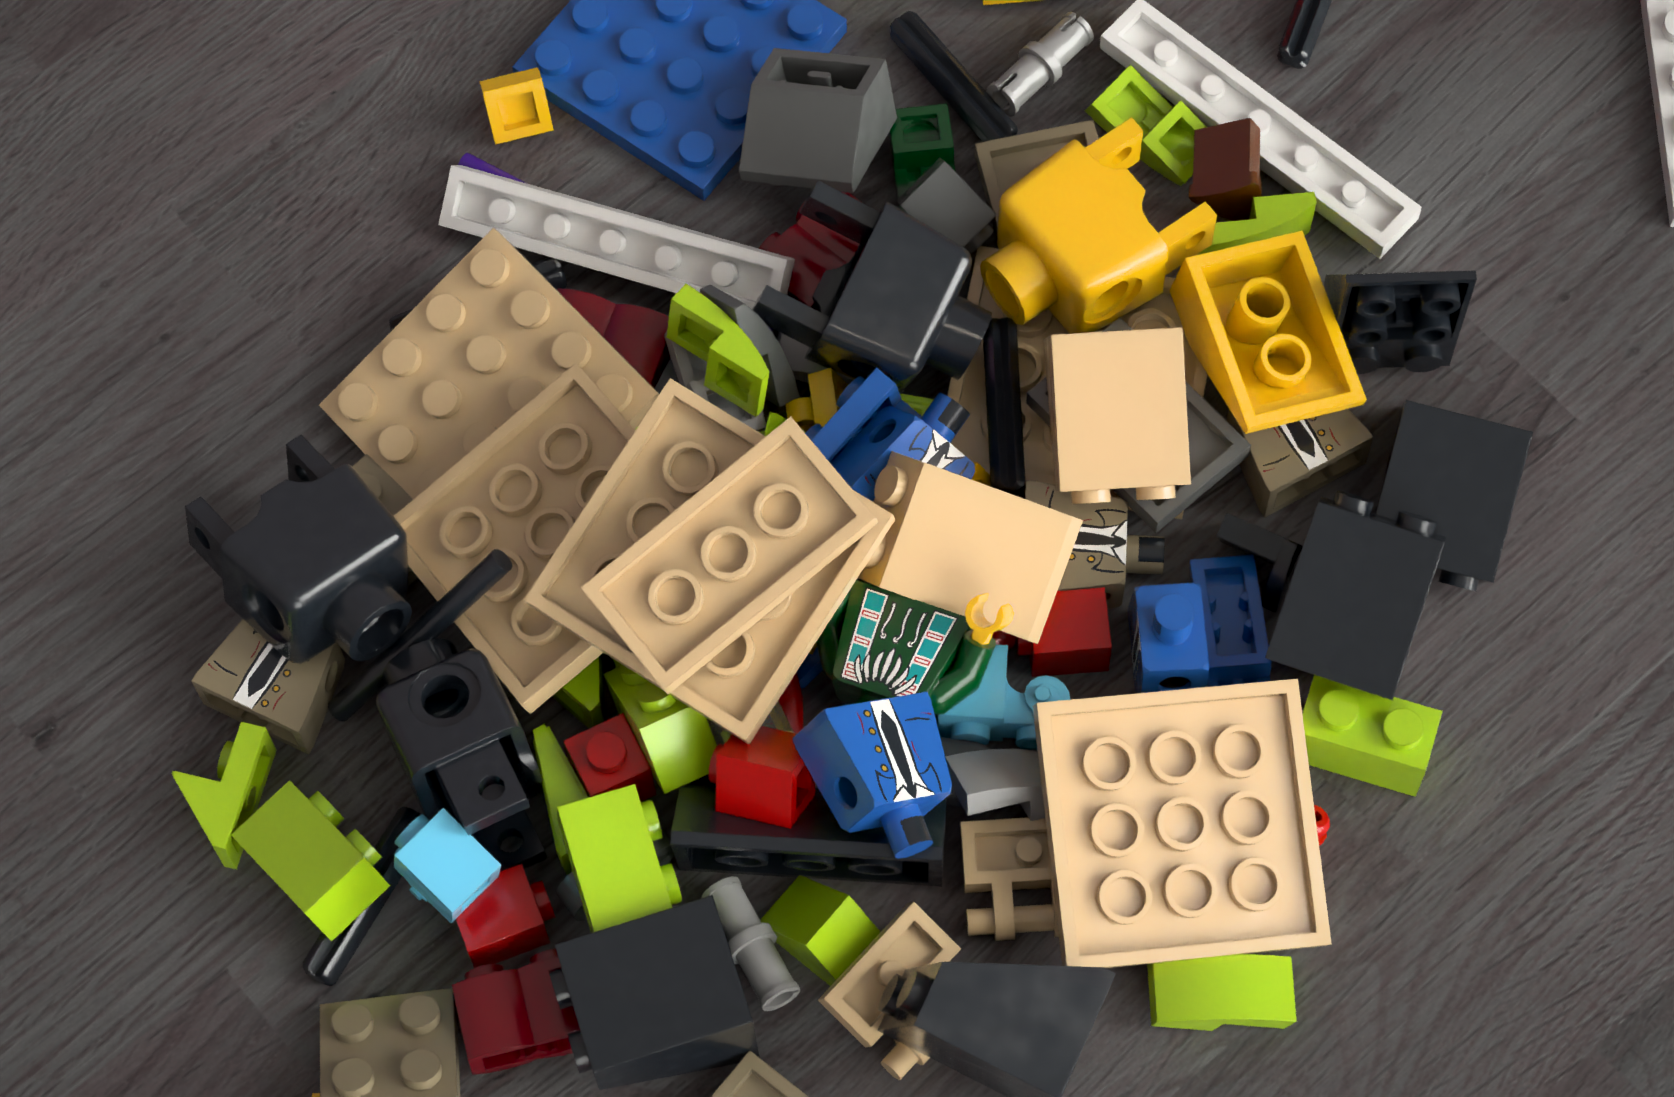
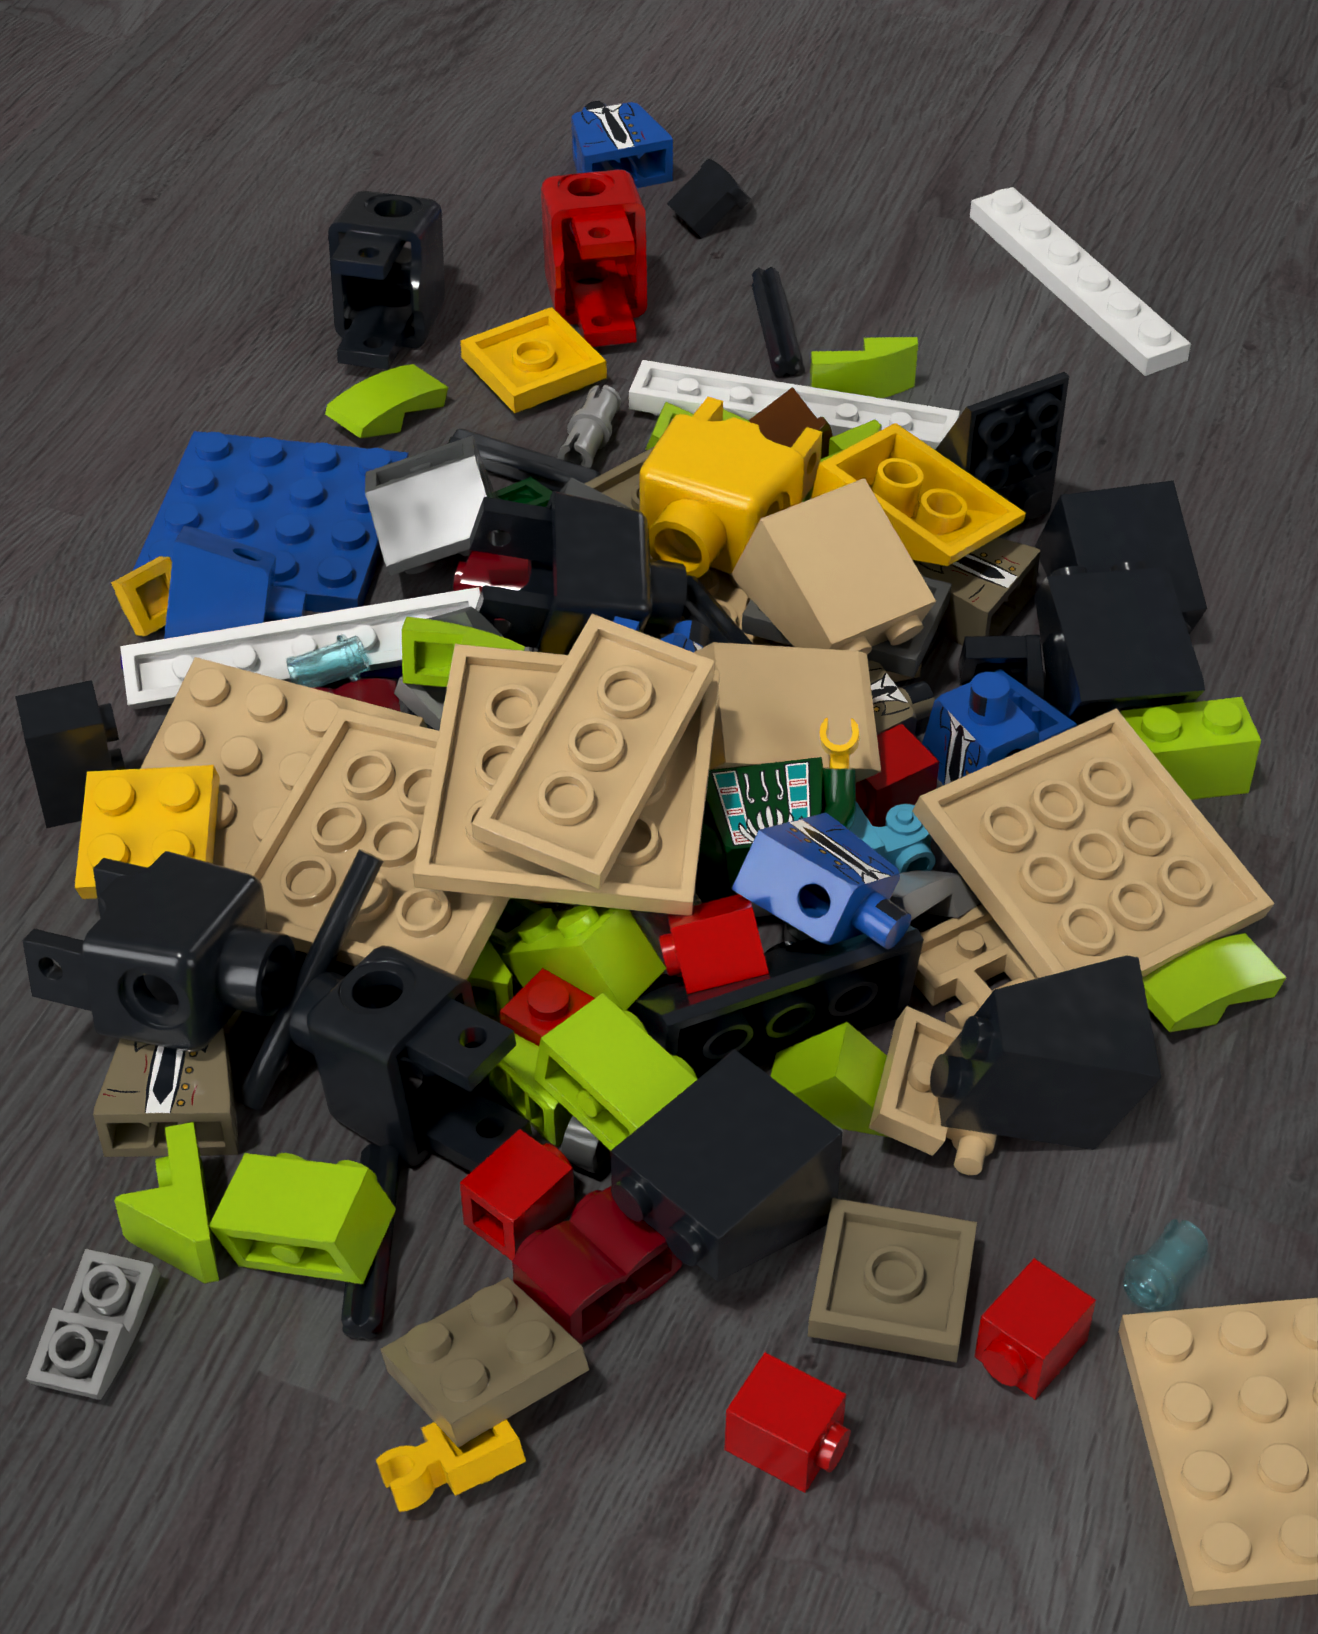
camera: 30 degrees left, 20 degrees down
(119, 871) = (96, 1327): none -> light grey slope
(347, 278) = (64, 741): none -> black brick
(372, 399) = (143, 814): none -> yellow plate
(444, 863) = (447, 1149): medium azure brick -> none
(571, 142) = (224, 586): none -> blue torso
(632, 278) = (329, 663): none -> clear light blue pin
(1377, 113) = (878, 371): none -> lime slope

